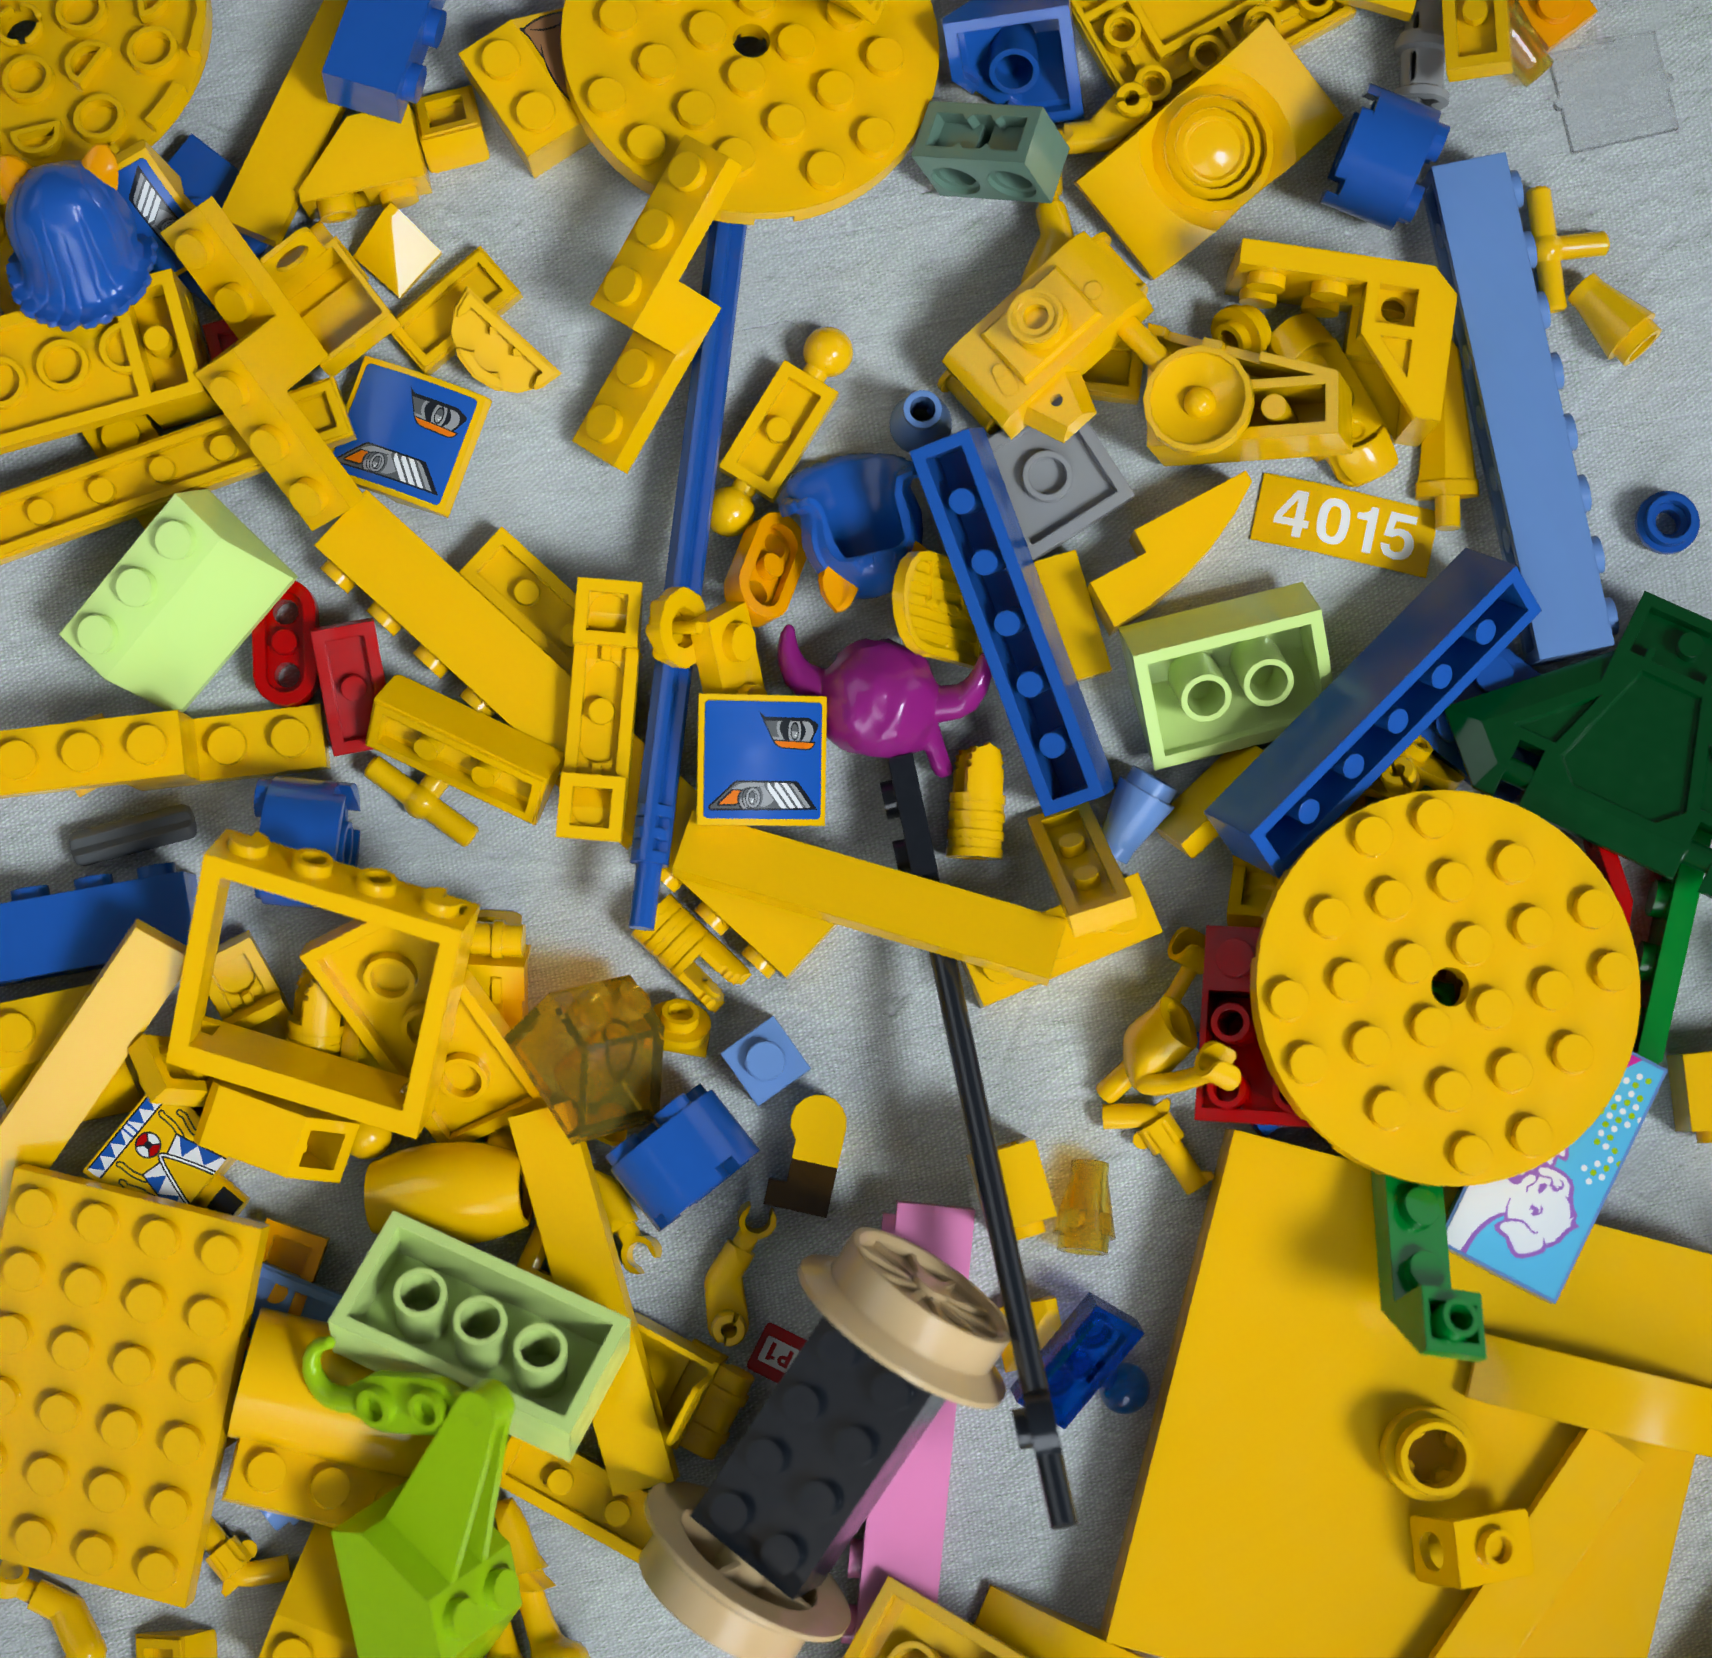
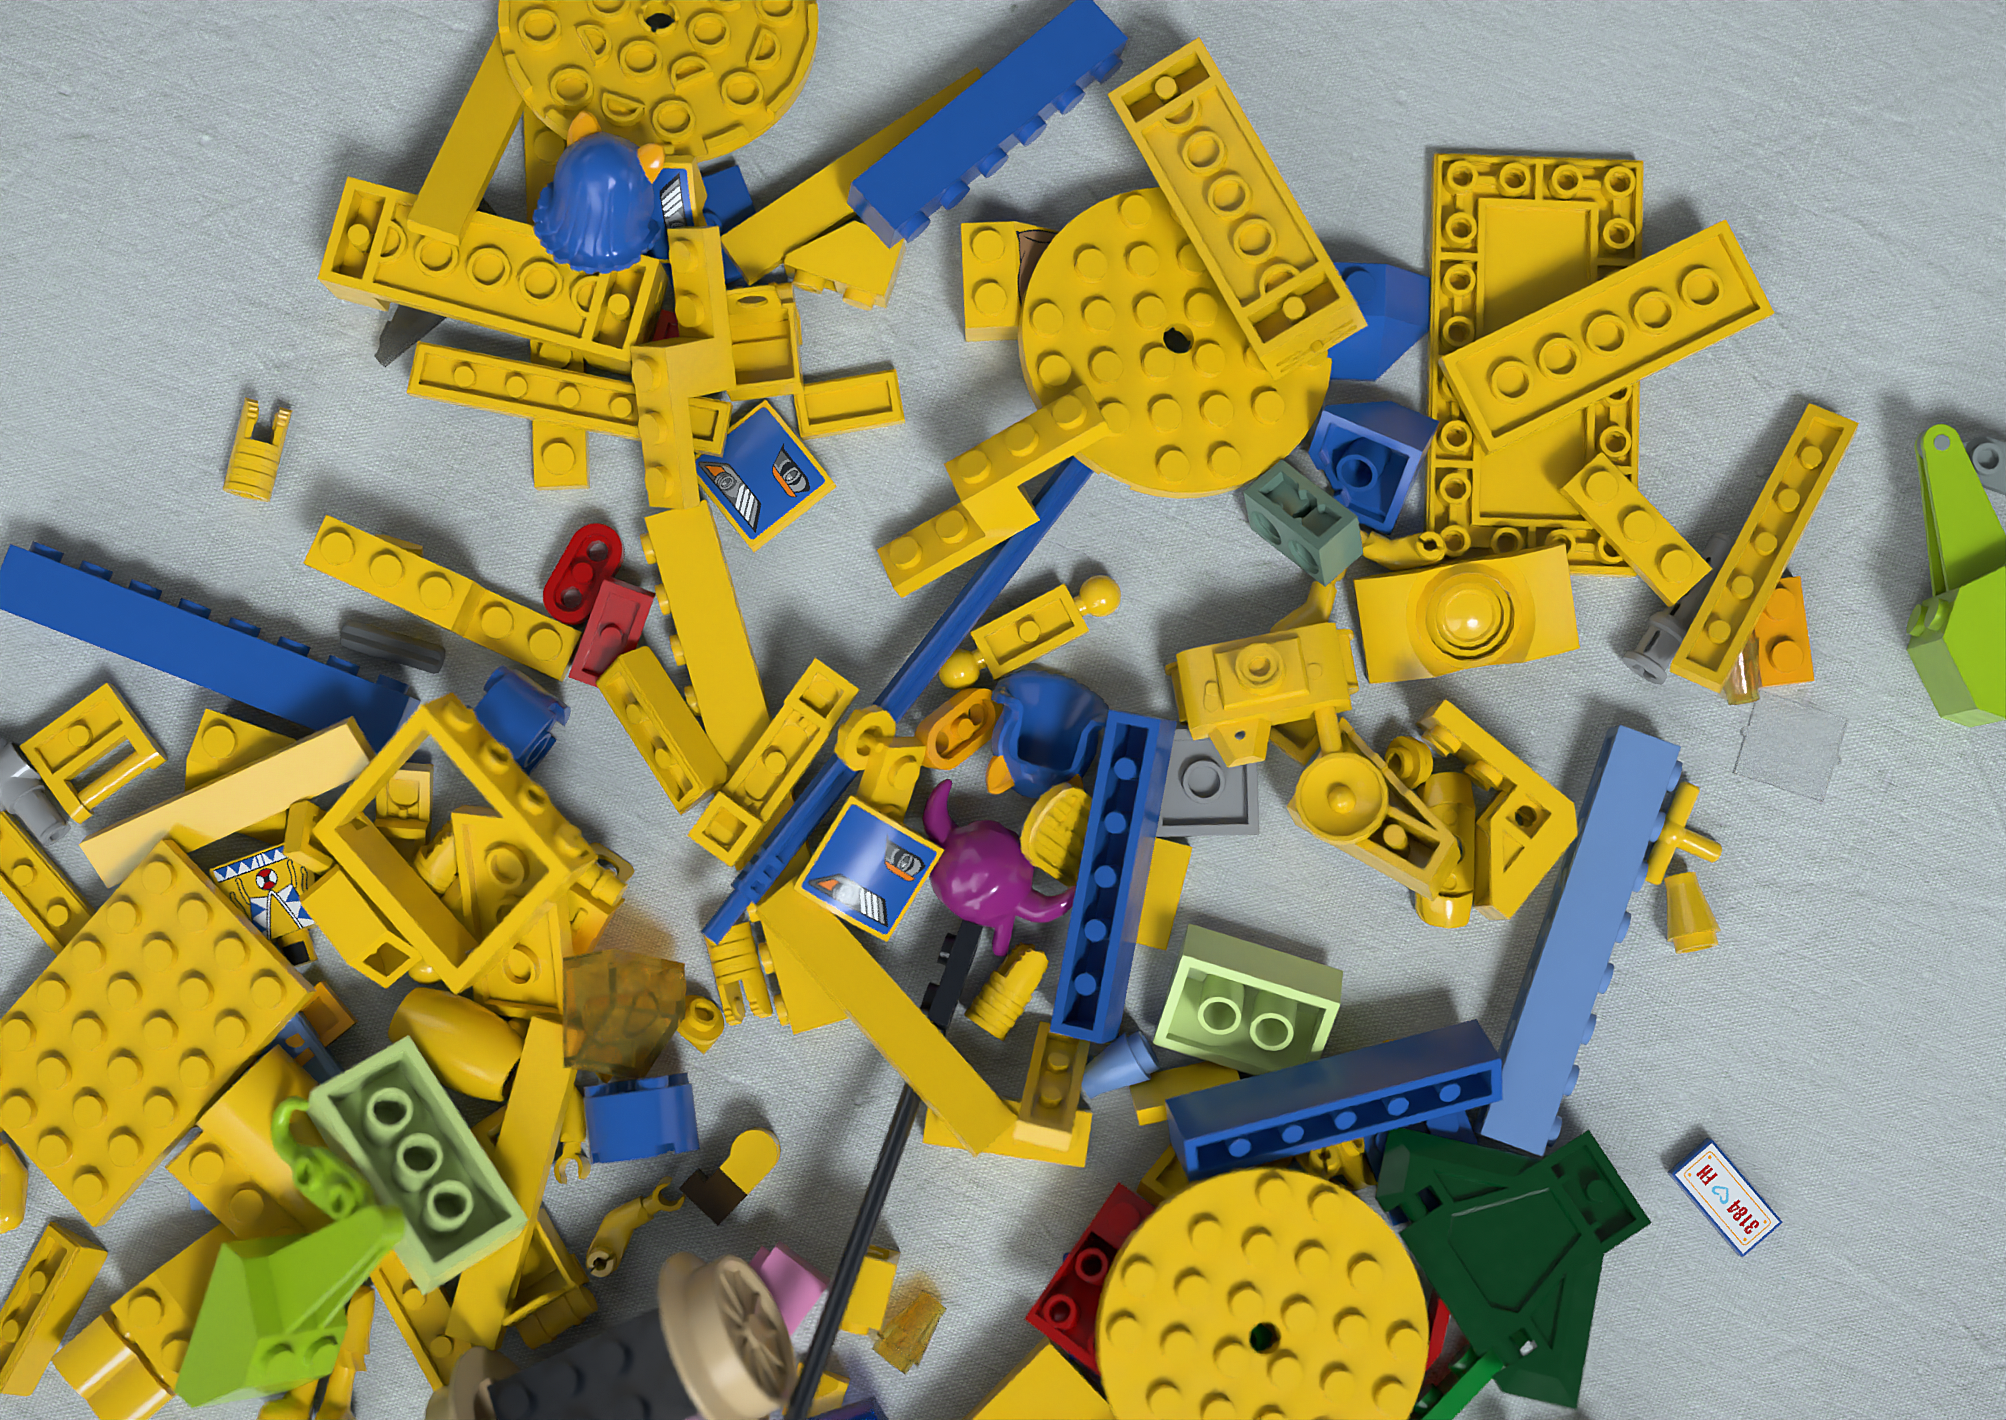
camera: 30 degrees right, 0 degrees up
(179, 602) = (523, 501): yellowish green slope -> none
(232, 1563) = (147, 1215): yellow piece -> none
(396, 251) = (833, 337): yellow slope -> none
(422, 800) = (612, 745): yellow piece -> none
(451, 129) = (926, 271): yellow slope -> none
(494, 350) = (860, 451): yellow plate -> none
(526, 594) = (775, 641): yellow plate -> none
(765, 1061) = (744, 1085): medium blue brick -> none
(775, 1352) = (627, 1299): red sticker -> none
(912, 434) = (1129, 700): medium blue cone -> none
(1159, 1134) = (997, 1312): yellow piece -> none
(1165, 554) = (1257, 890): yellow slope -> none
(1167, 1035) = (1041, 1244): yellow piece -> none
(1344, 524) = (1401, 945): yellow sticker -> none
(1384, 158) = (1588, 698): blue brick -> none
(1447, 454) = (1506, 941): yellow bar -> none
(1683, 513) = (1654, 1087): blue plate -> none

